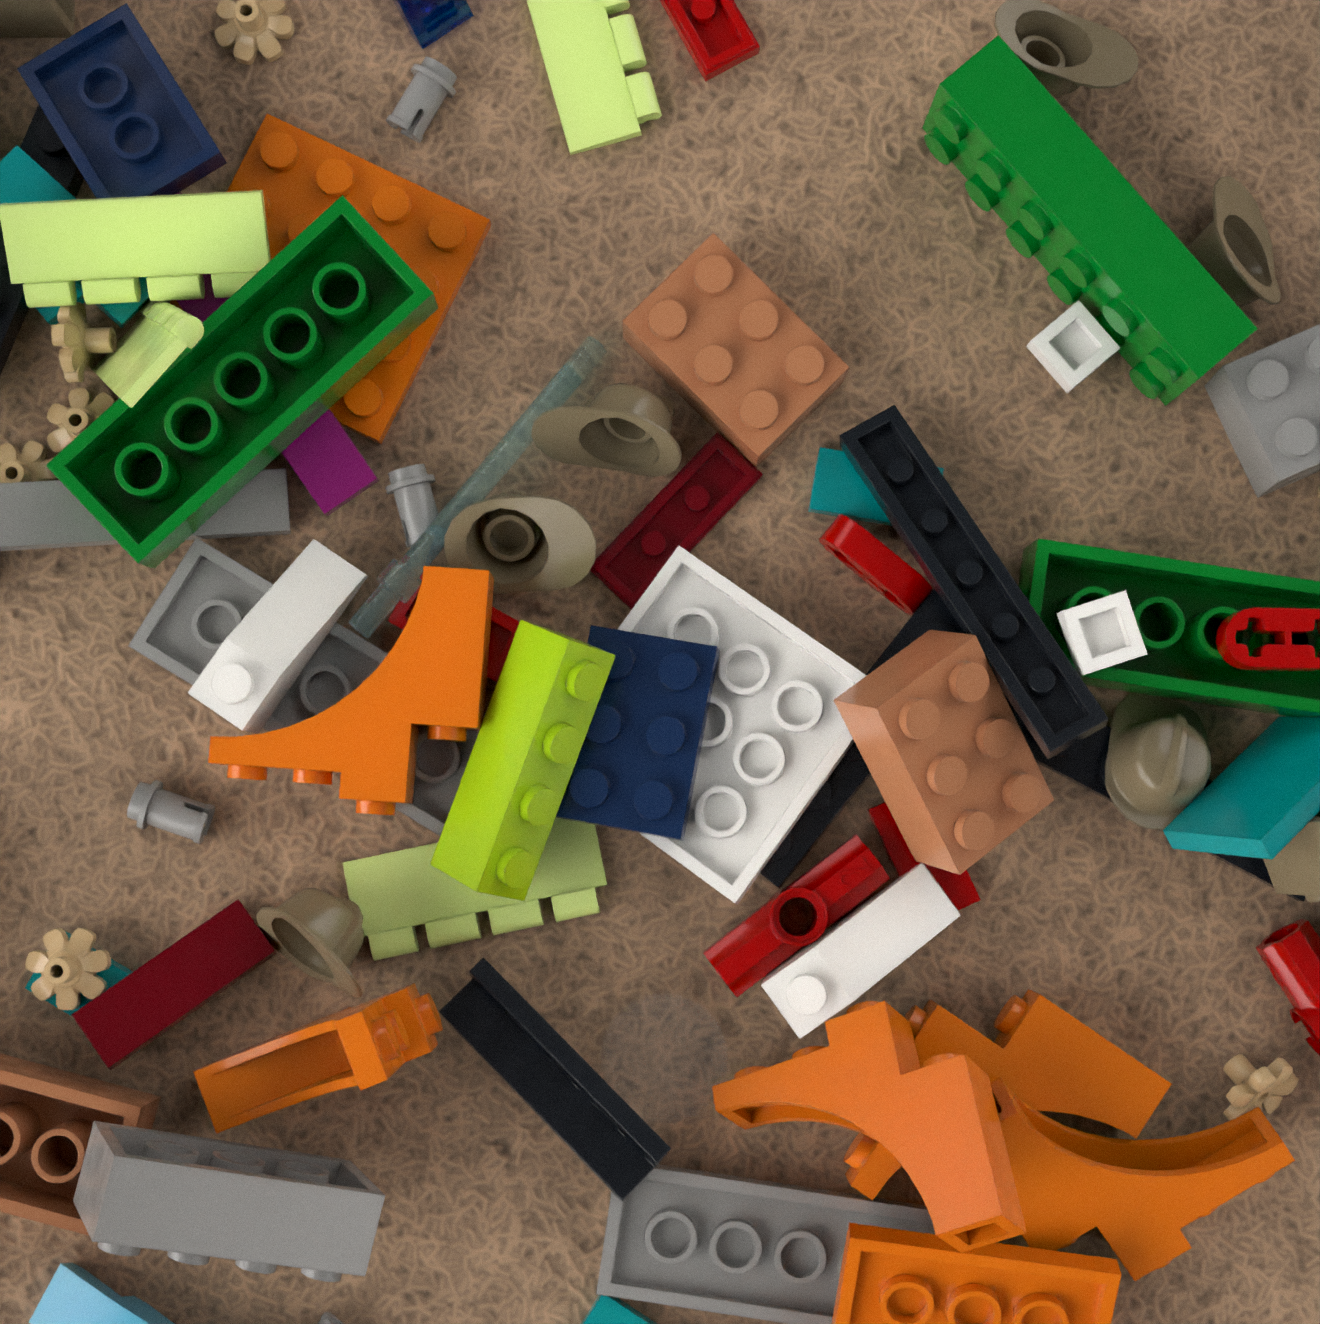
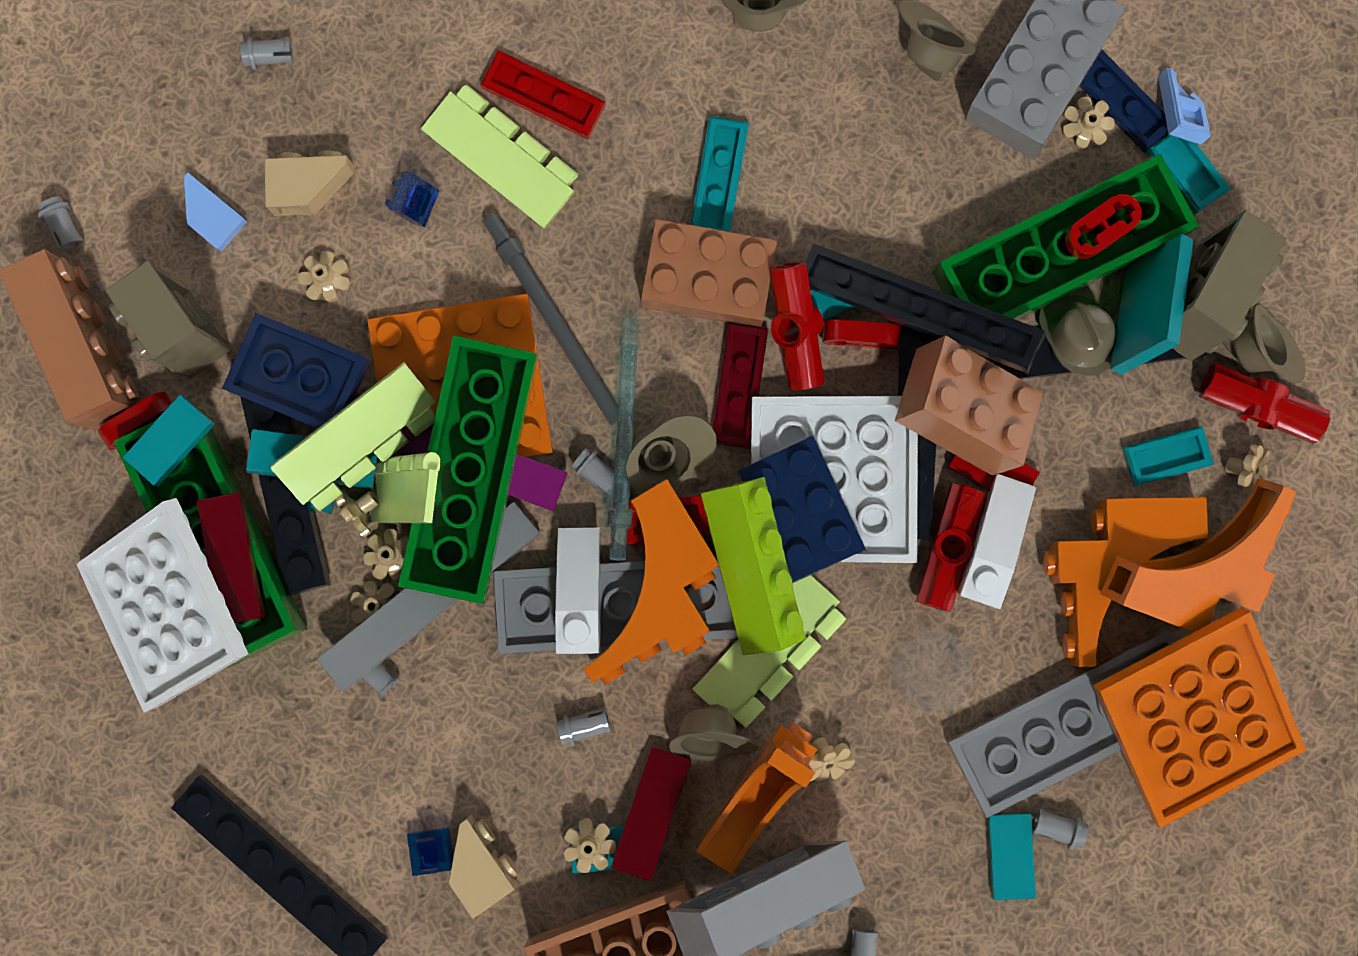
camera: 30 degrees left, 0 degrees up
(422, 98) = (445, 253): light grey pin -> none
(445, 1075) = (830, 760): none -> tan plant
(506, 156) = (512, 253): none -> dark grey bar
(554, 1081) = (887, 721): black fence -> none
(615, 430) = (674, 359): dark tan piece -> none
(798, 493) = (797, 325): none -> red piece
(840, 237) = (719, 173): none -> teal tile
(930, 1118) = (1099, 601): orange arch -> none
(1073, 346) = (884, 148): white tile -> none
(1082, 222) = (846, 80): green brick -> none
(1101, 633) = (1009, 289): white tile -> none
(1161, 996) = (1167, 456): none -> teal tile

